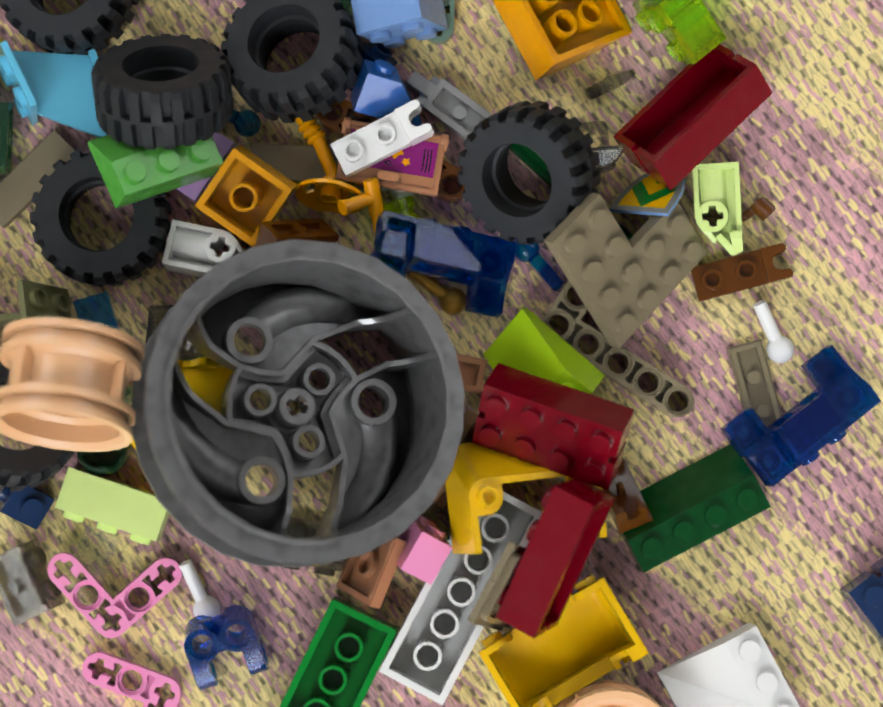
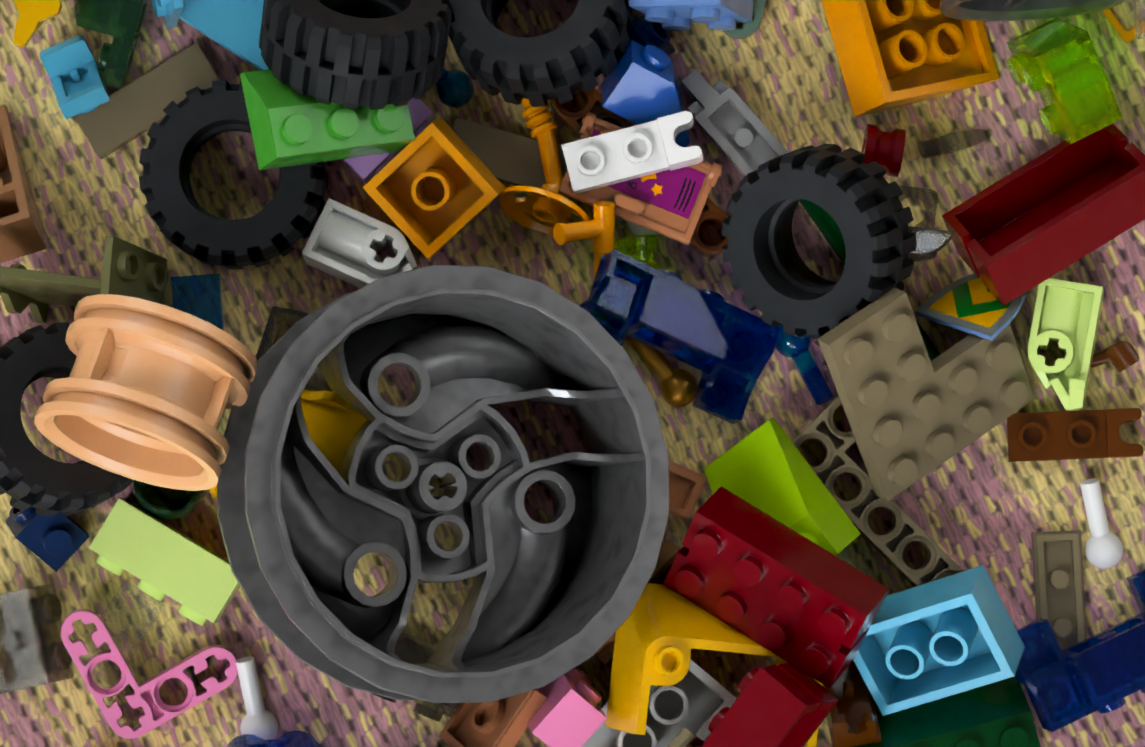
camera: 15 degrees right, 0 degrees up
(303, 229) = (490, 250): reddish brown hinge -> none
(562, 96) = (884, 148): none -> dark red wheel
(678, 440) = (938, 642): none -> medium azure brick

